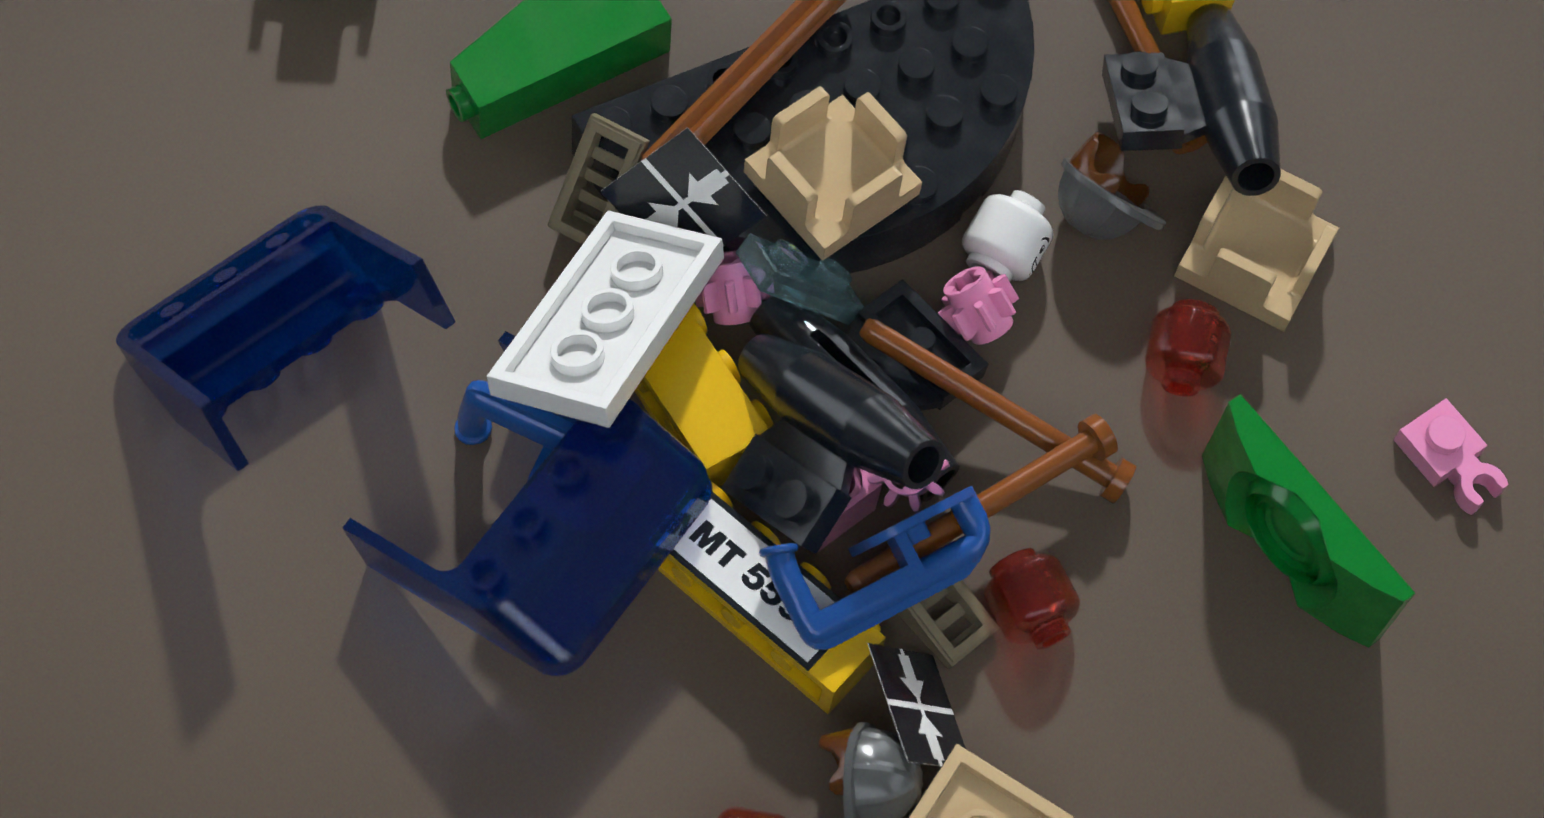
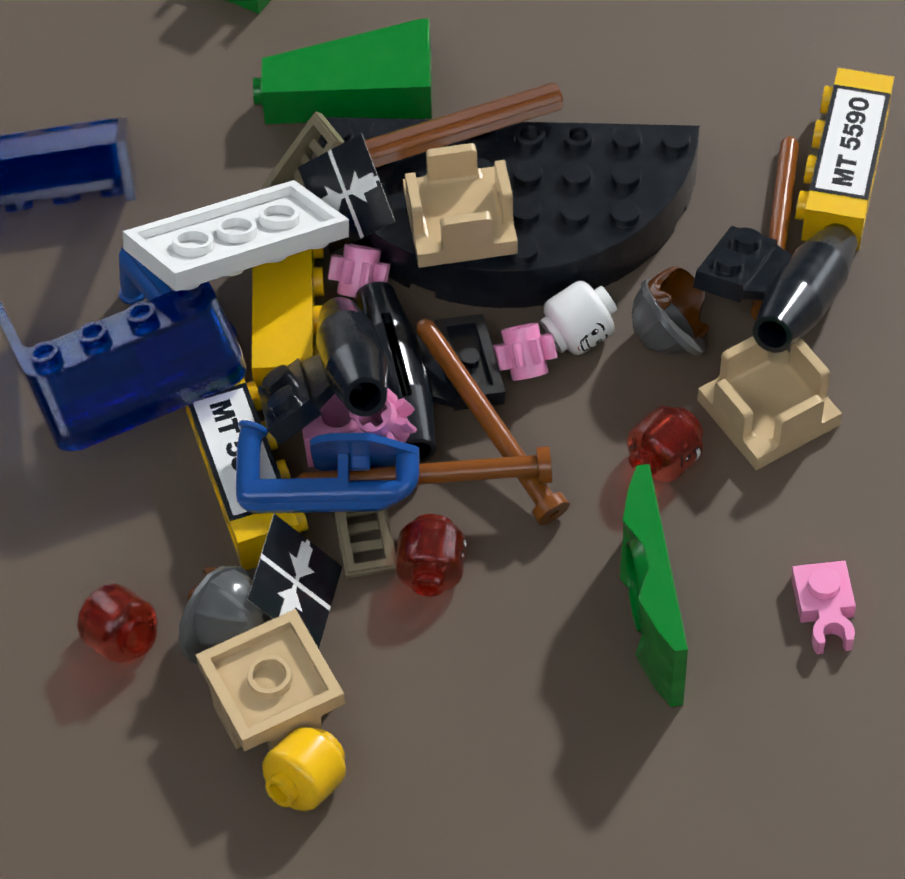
camera: 40 degrees right, 10 degrees down
(791, 276) = (402, 279): clear light blue plate -> none

